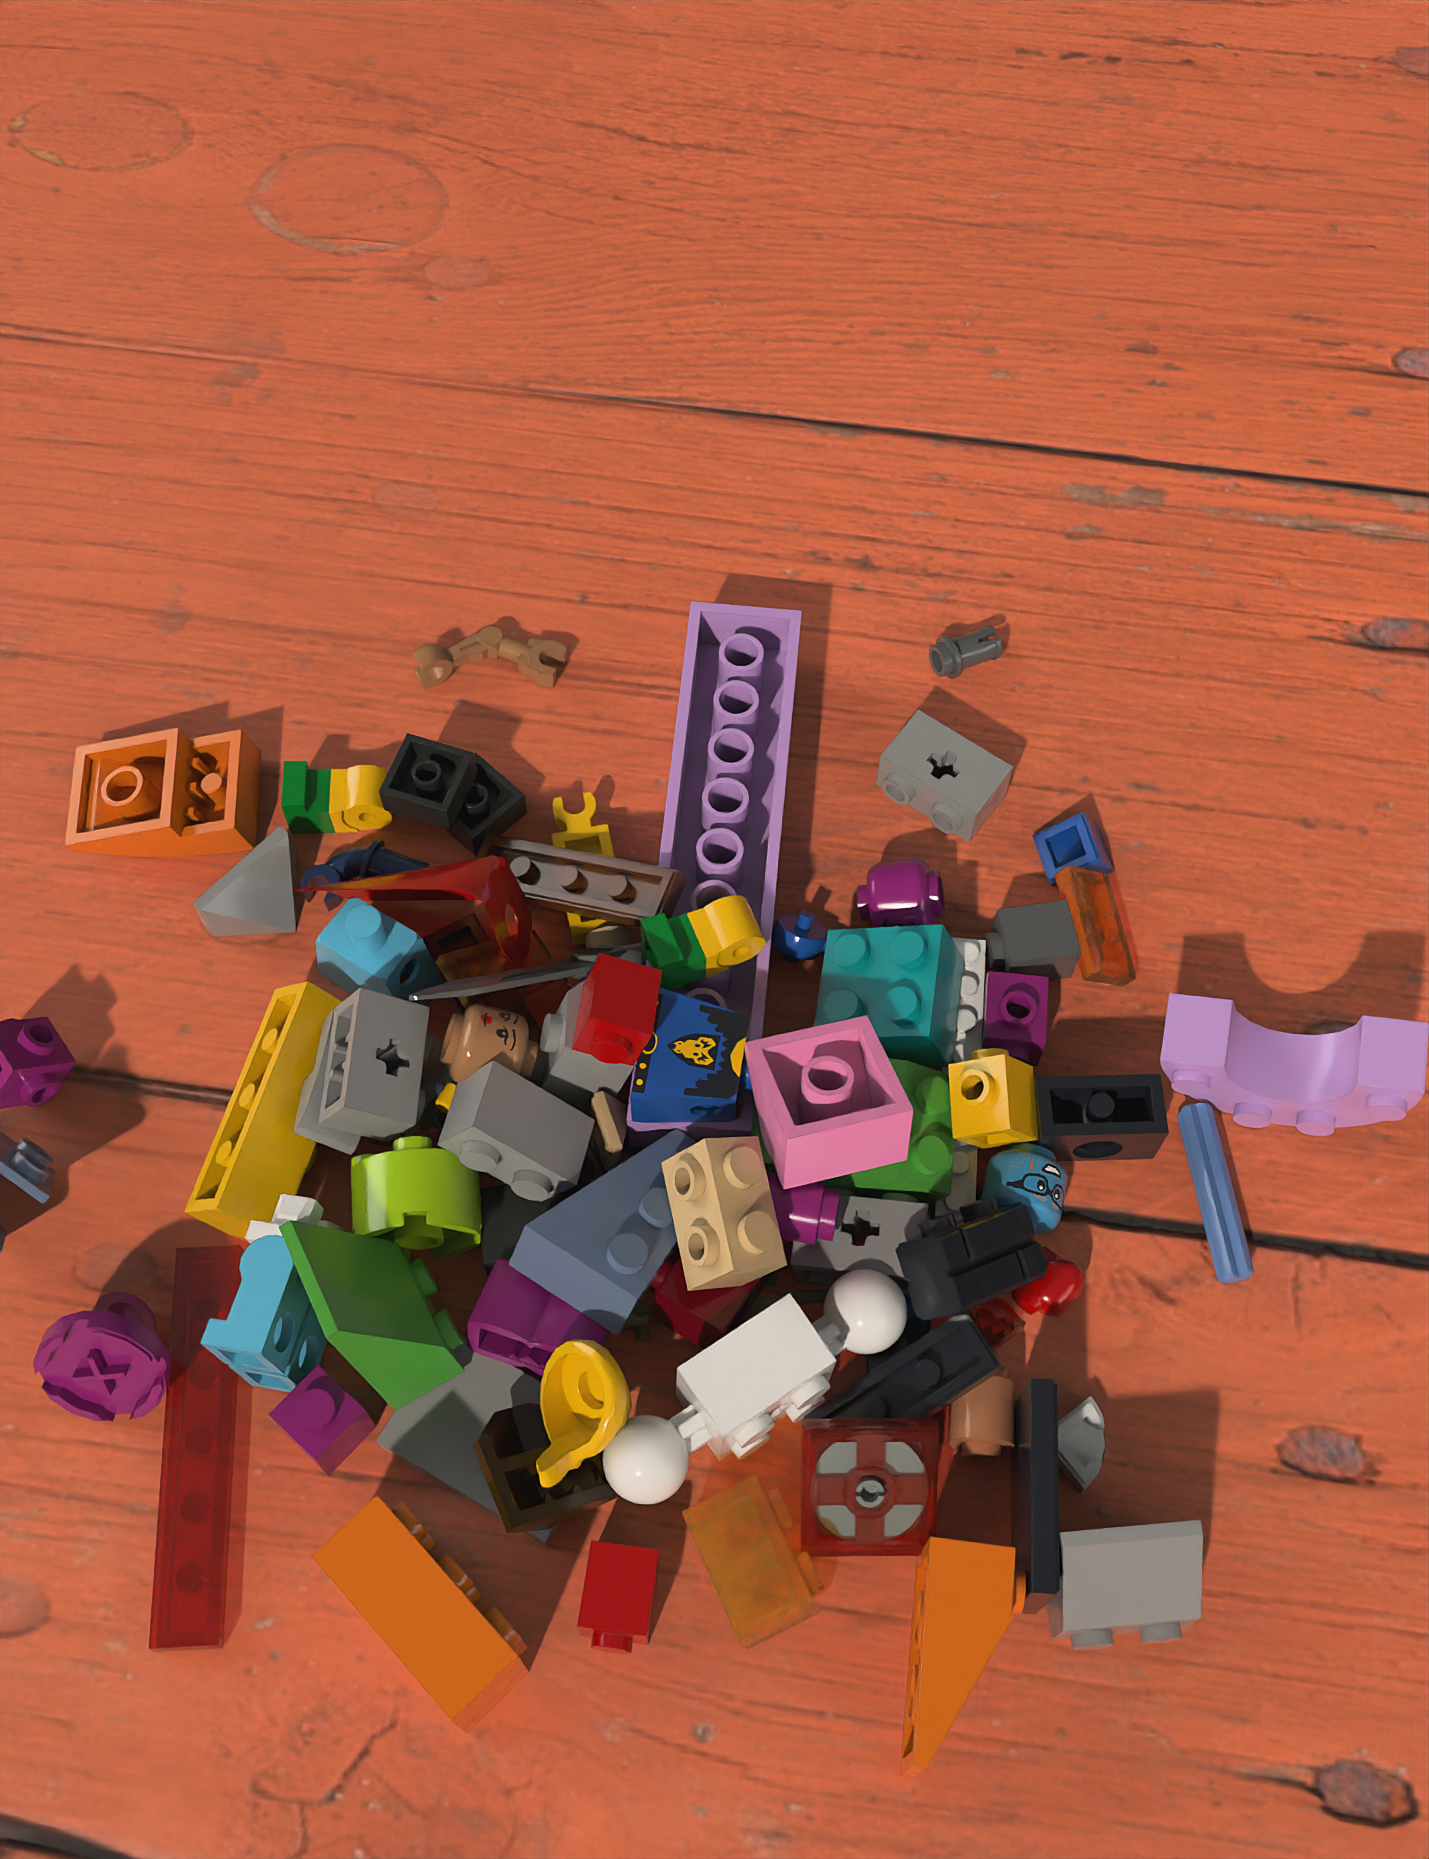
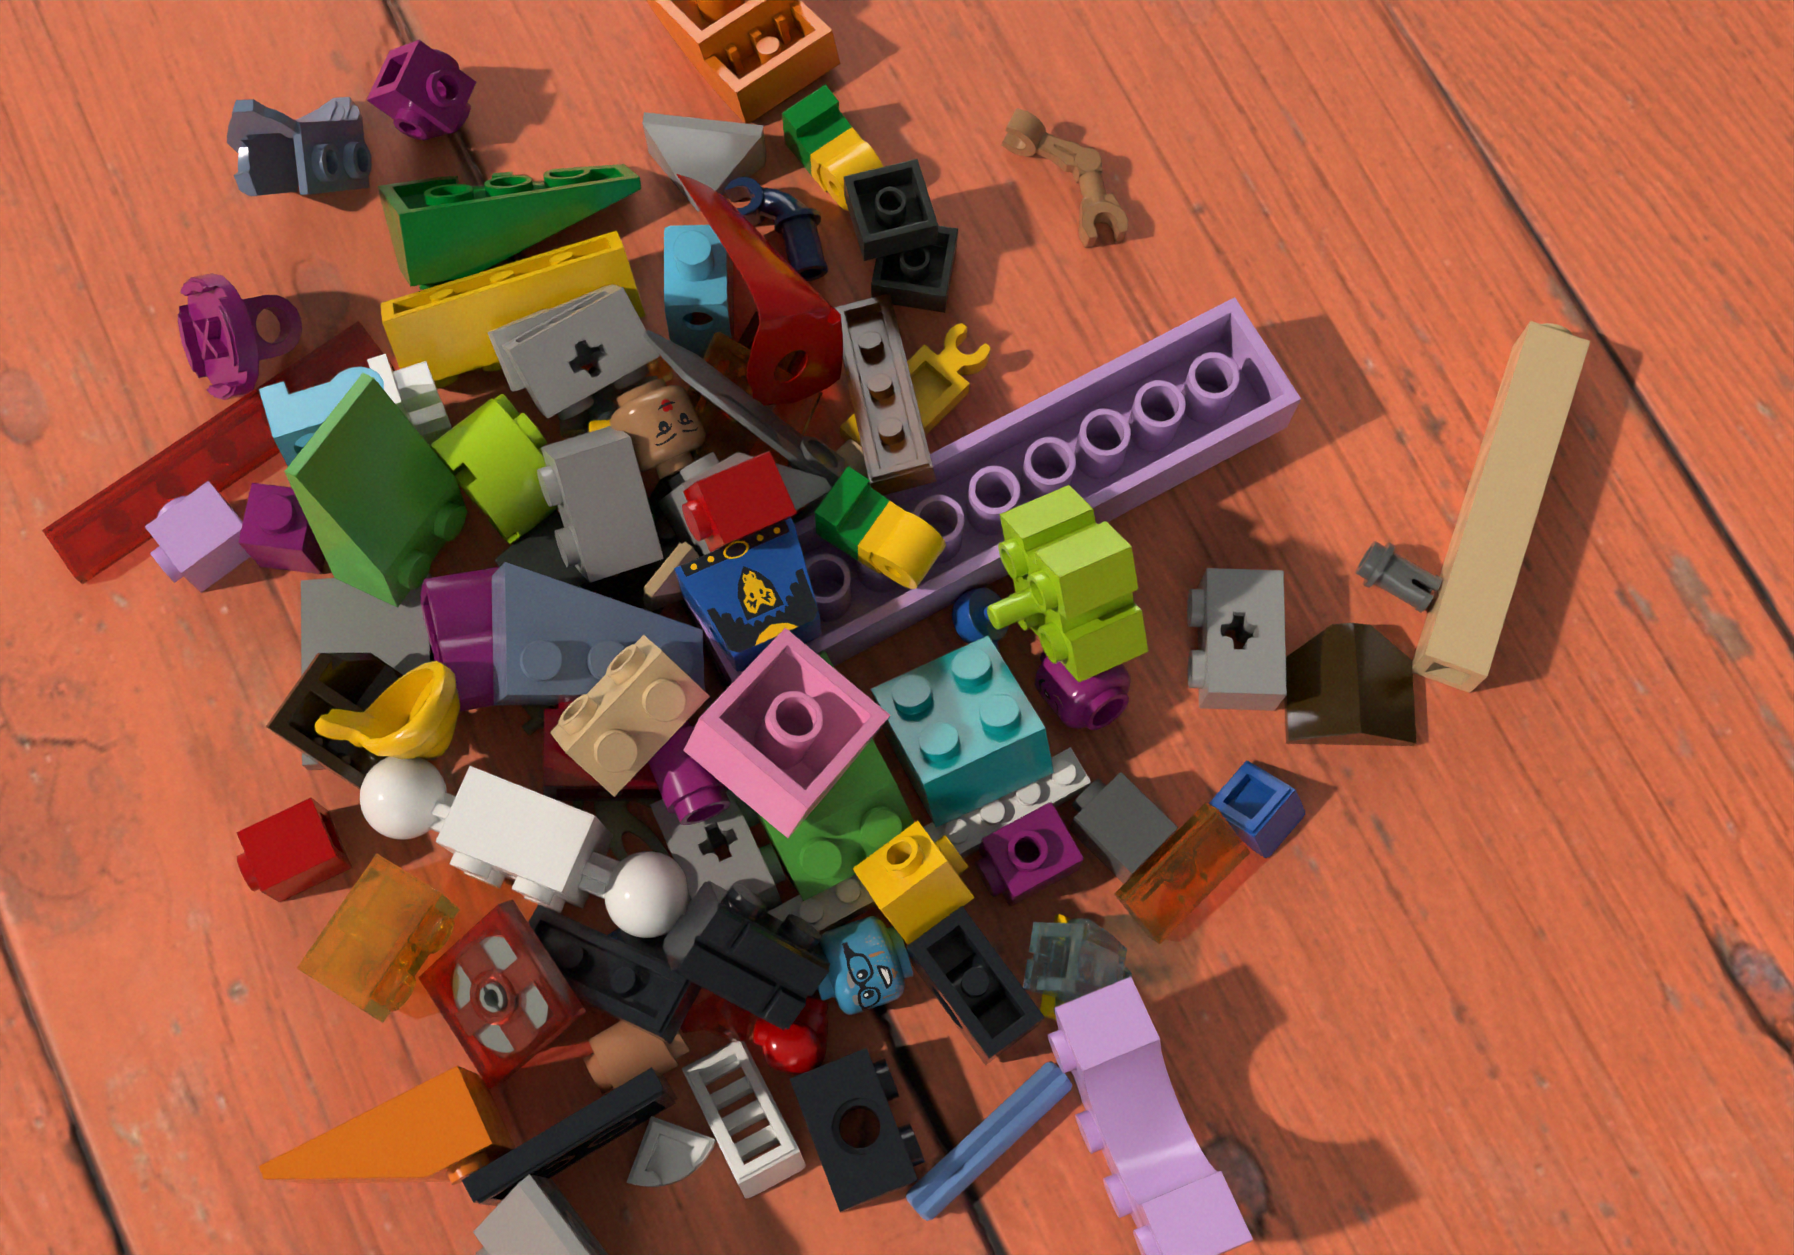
camera: 55 degrees right, 10 degrees up
(175, 1101) = (461, 229): none -> green wedge
(270, 1503) = (198, 537): none -> lavender brick
(424, 1610) = (172, 708): orange brick -> none
(839, 836) = (1070, 584): none -> lime brick
(962, 558) = (1500, 507): none -> tan brick
(1030, 734) = (1349, 690): none -> dark brown slope
(1110, 1341) = (769, 1167): none -> white slope
(1117, 1294) = (826, 1098): none -> black brick
(1122, 1036) = (1072, 961): none -> clear light blue piece

